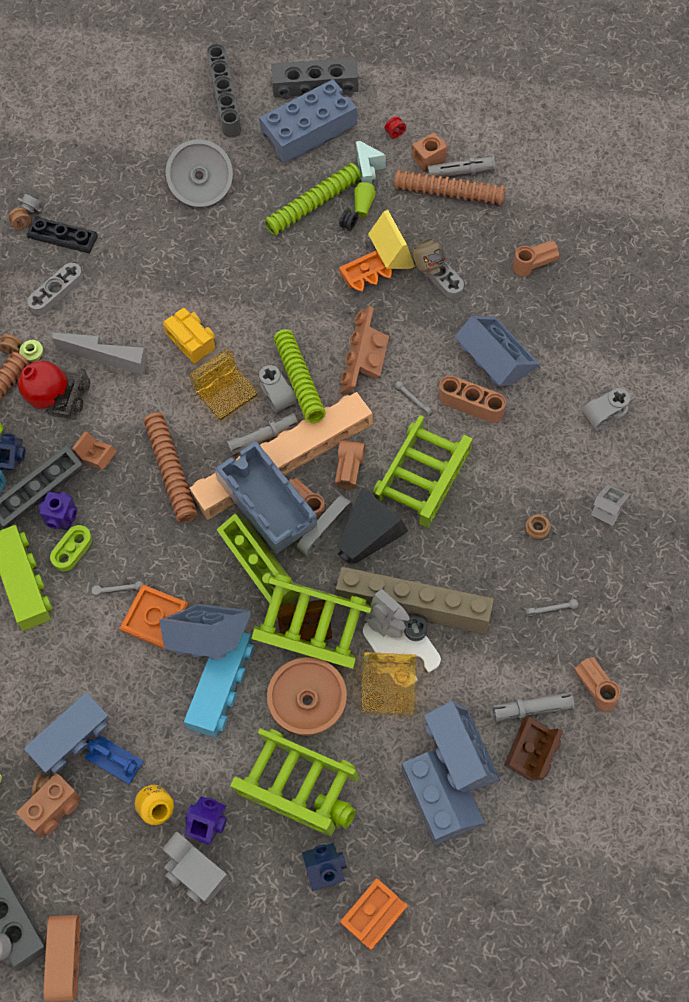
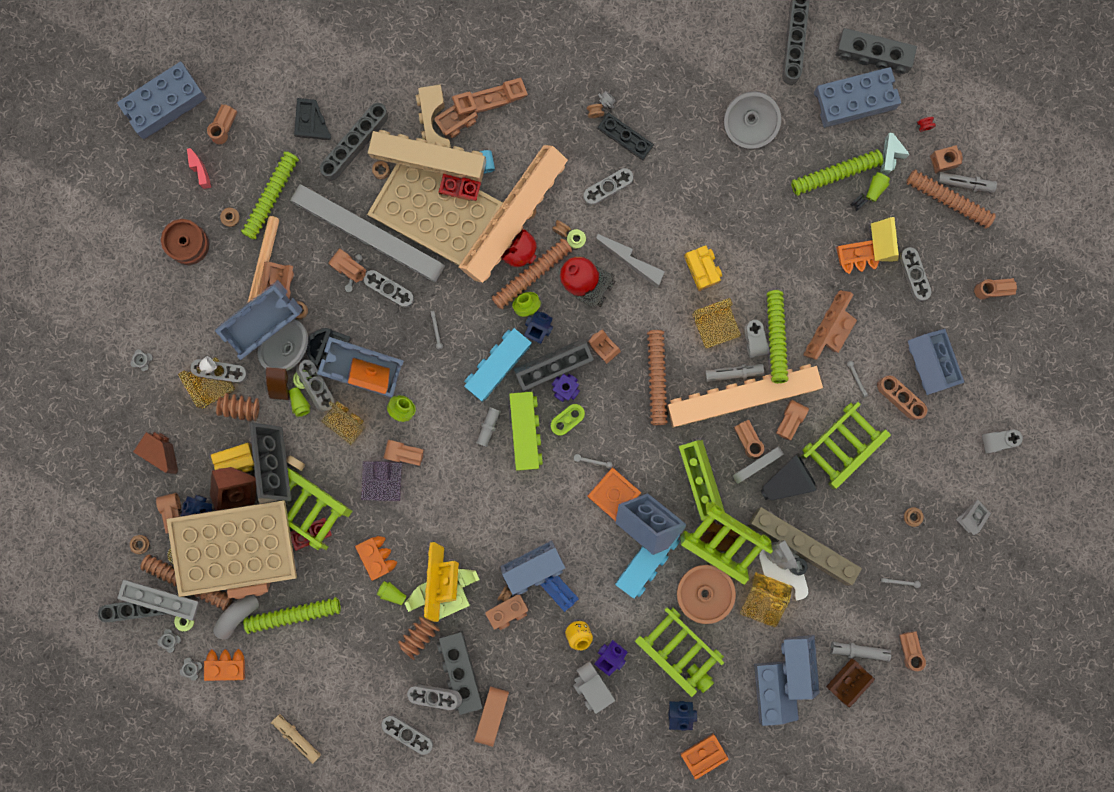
camera: 15 degrees right, 20 degrees up
(266, 497) = (723, 437): sand blue piece -> none
(429, 256) = (912, 265): dark tan head -> none

